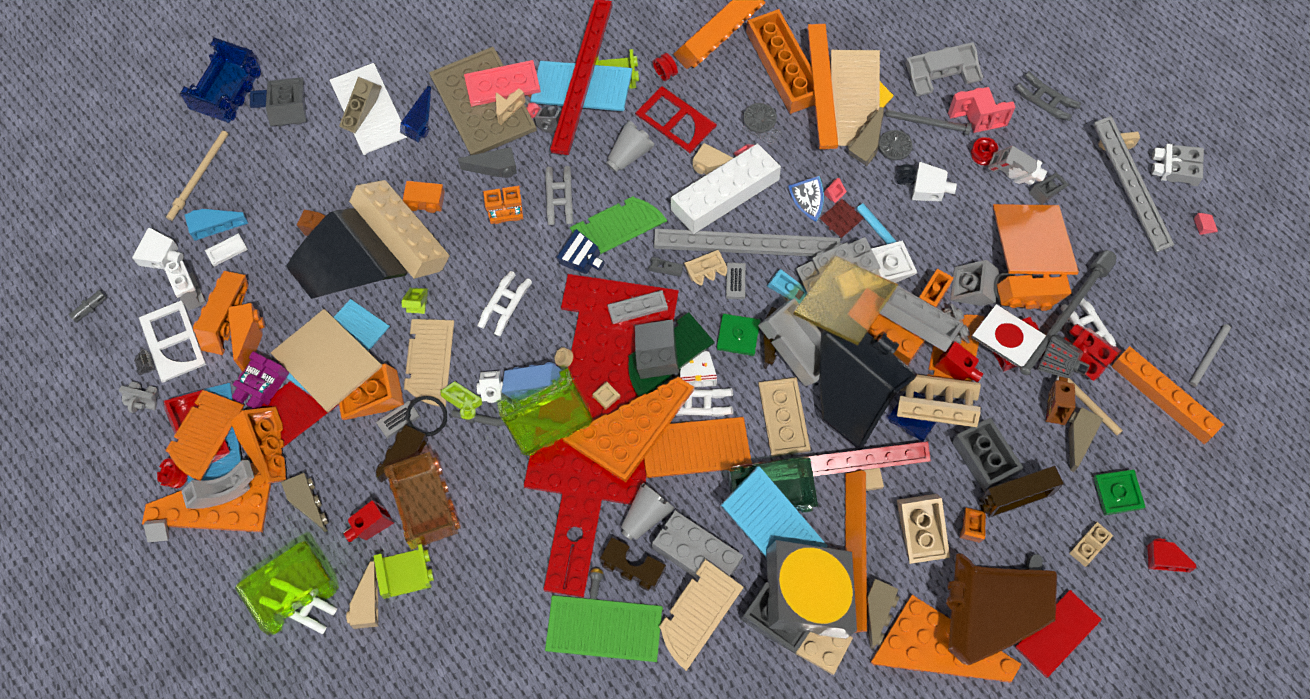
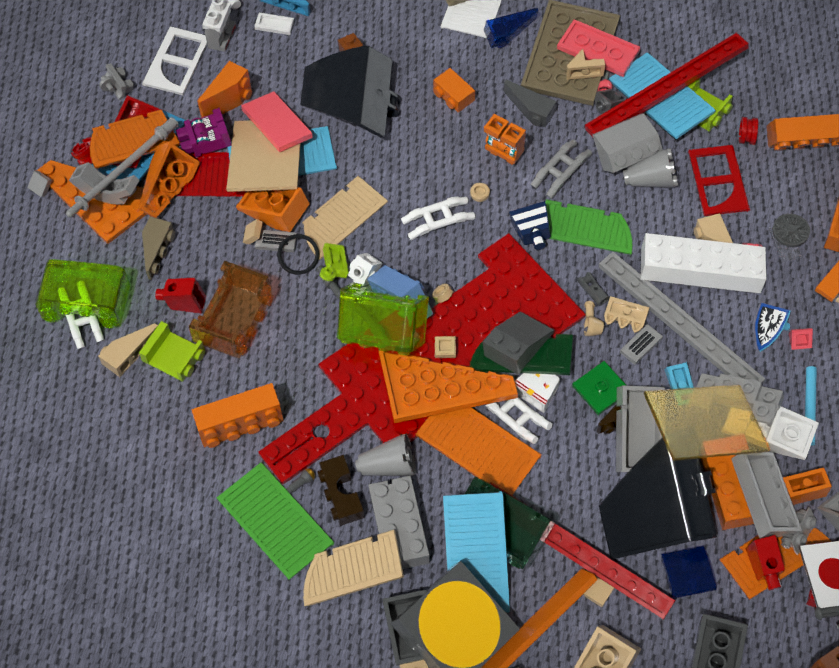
camera: 45 degrees right, 5 degrees down
(144, 362) = (143, 61): clear smoke slope -> none
(214, 323) = (207, 66): orange wedge -> none
(224, 409) = (160, 133): none -> light grey bar
(308, 326) = (276, 121): none -> coral tile
(374, 427) = (252, 232): none -> tan tile
(399, 228) = (409, 99): tan brick -> none
(407, 445) = (264, 262): dark brown slope -> none
(415, 300) = (372, 162): lime slope -> none
(505, 576) = (238, 415): none -> orange brick
(516, 259) = (480, 192): none -> tan tile
(593, 140) = (626, 143): none -> light grey slope
(637, 307) = (537, 299): light grey tile -> none
(694, 291) = (595, 326): none -> tan bar
(784, 417) = (574, 482): tan tile -> none
(841, 218) = (785, 366): clear red piece -> none
(941, 411) = (708, 585): tan fence -> none

